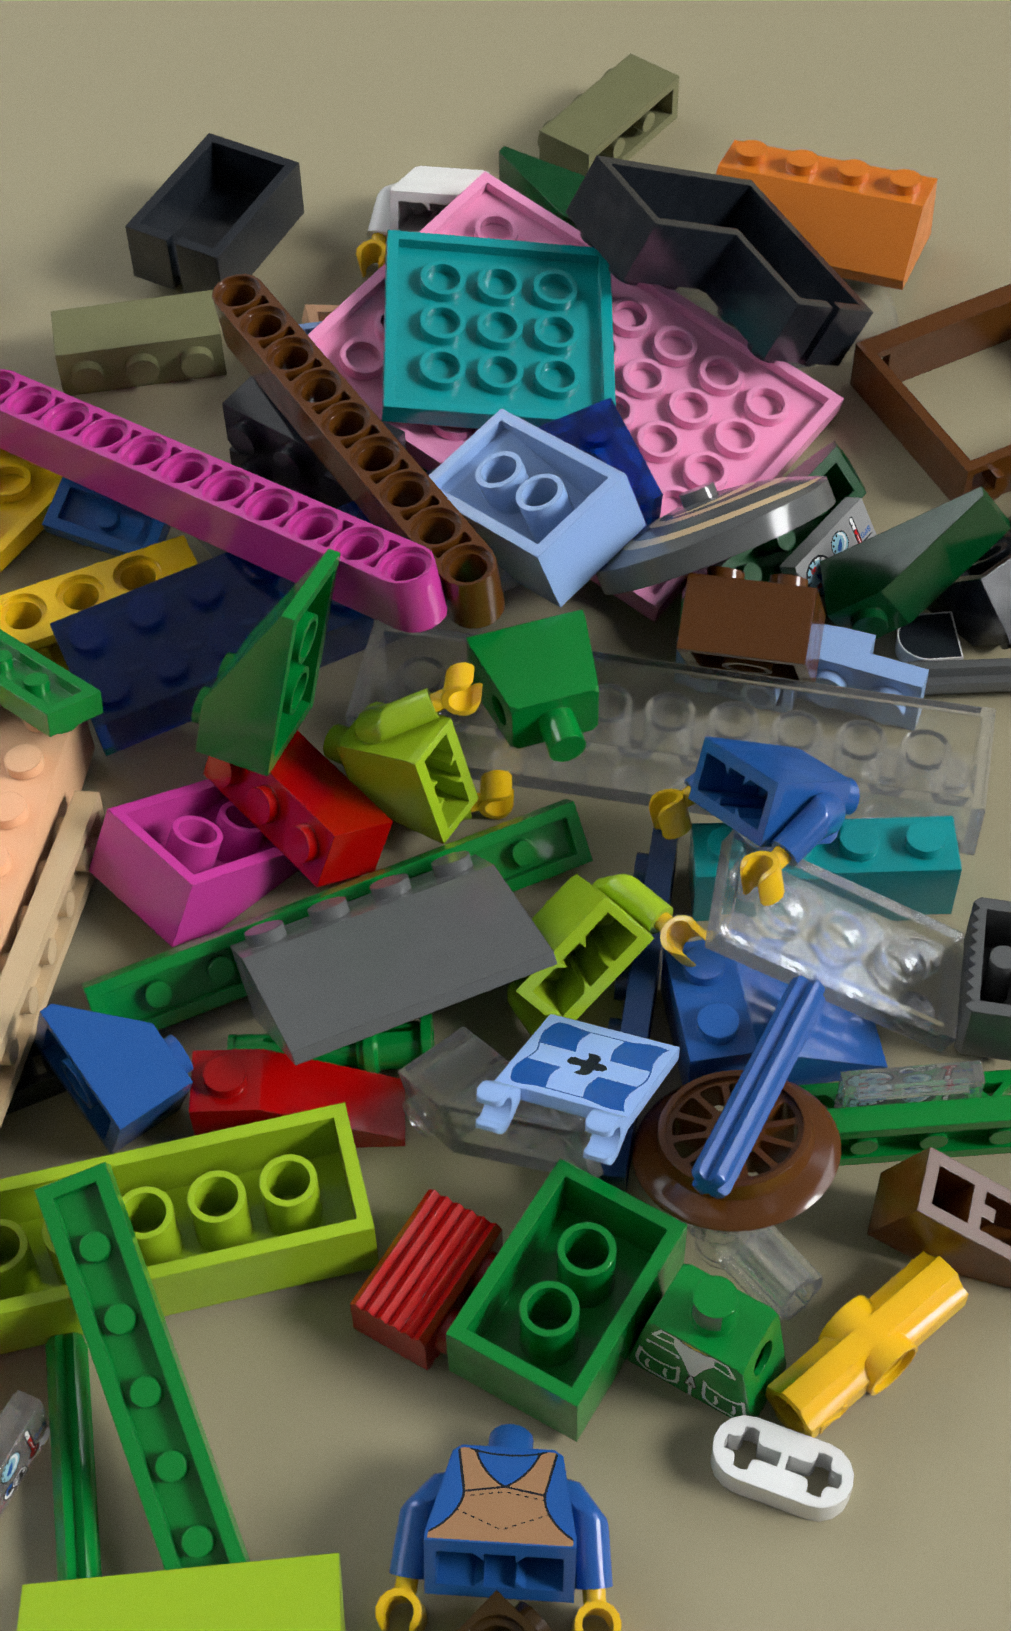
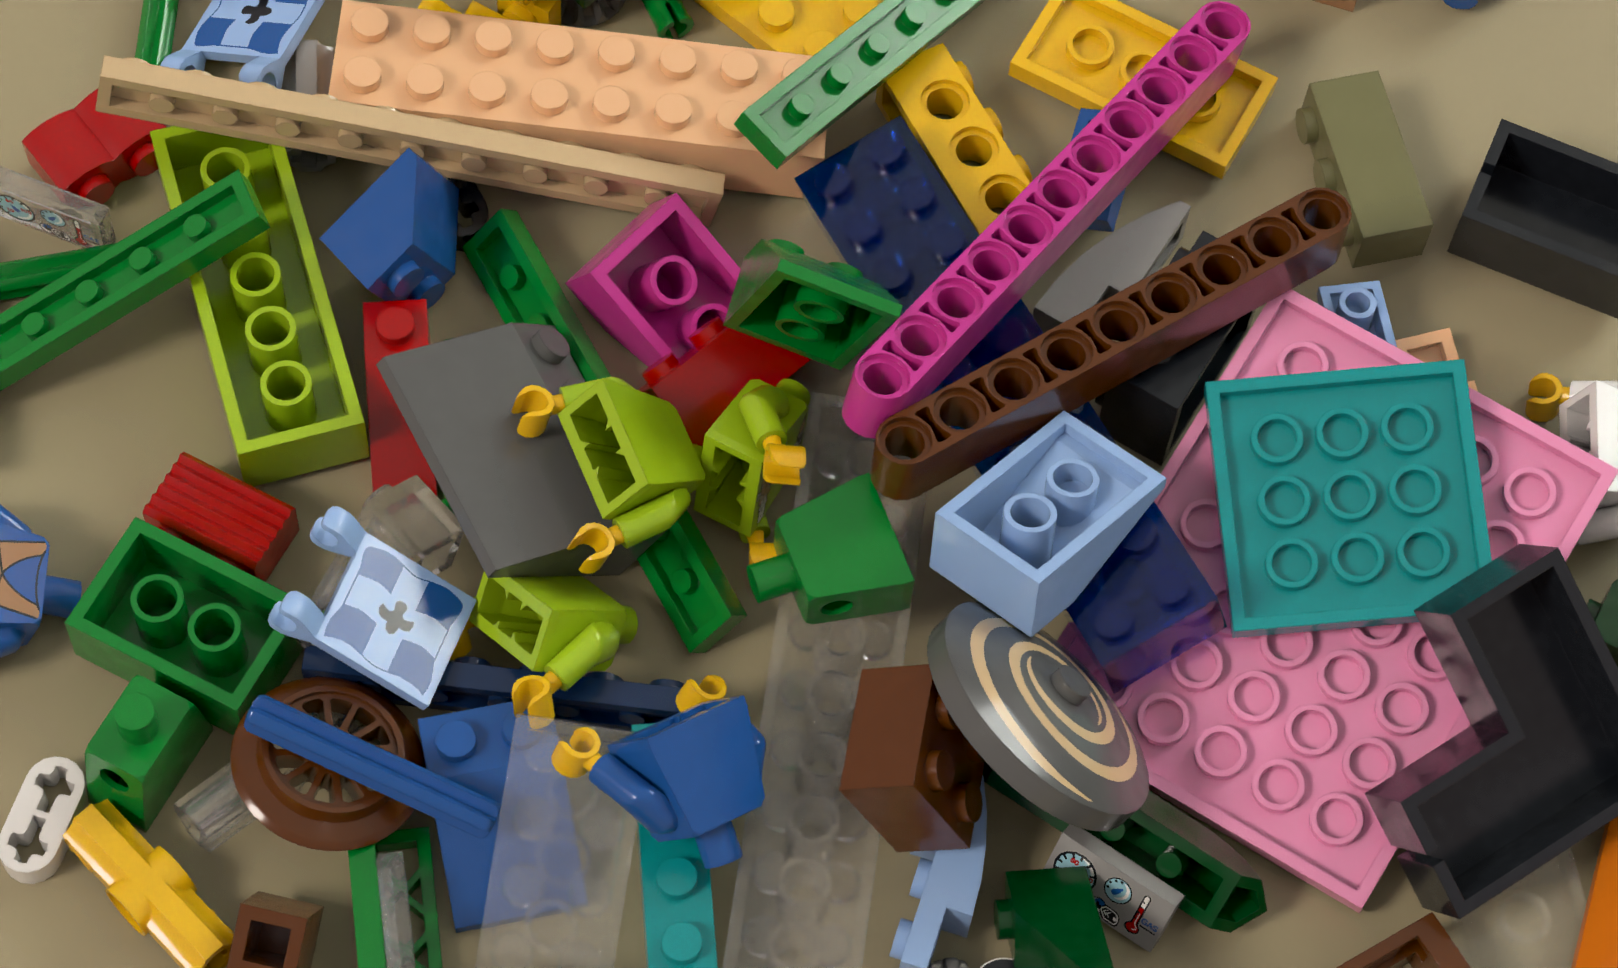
camera: 80 degrees right, 10 degrees up
(427, 837) = (629, 453): none -> lime torso

